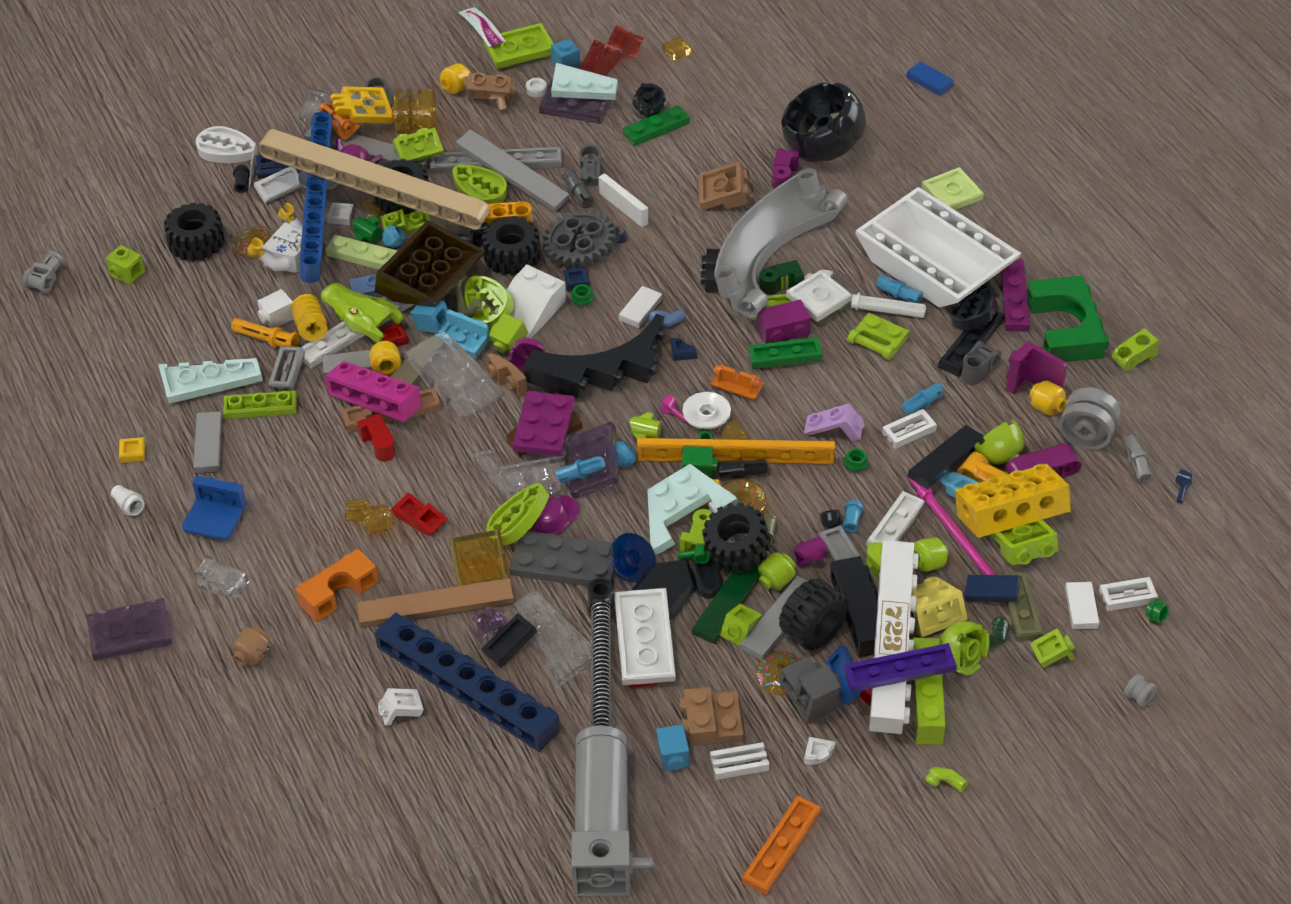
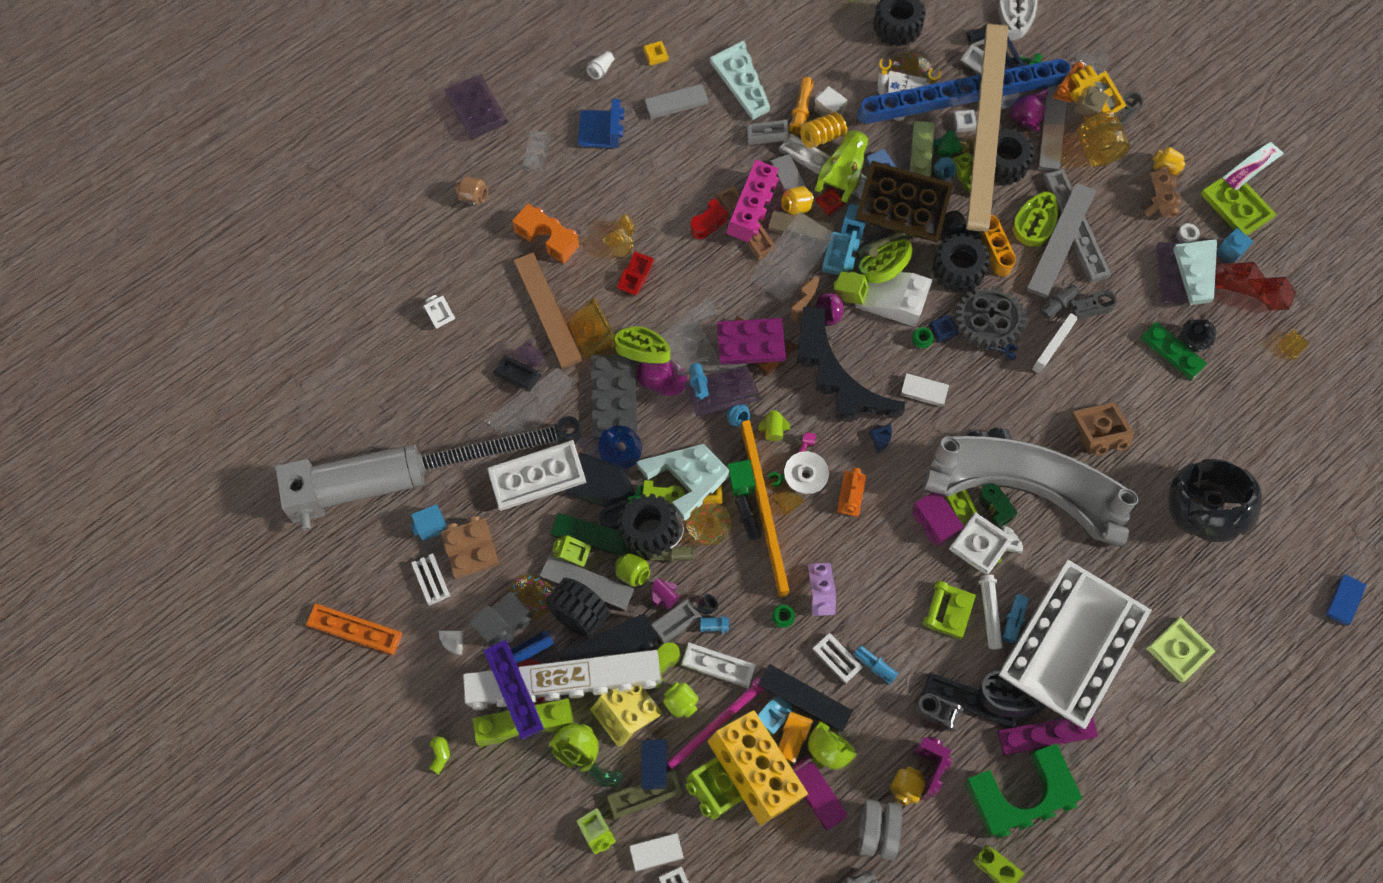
camera: 75 degrees right, 20 degrees up
(260, 404) = (726, 126): lime tile -> none
(375, 104) = (1090, 101): none -> dark tan brick
(418, 145) = (1060, 154): lime bracket -> none
(449, 670) = (438, 420): dark blue brick -> none
(670, 319) = (913, 415): medium blue arm -> none
(784, 163) = (1149, 477): magenta leg -> none
(785, 353) = (899, 527): green plate -> none

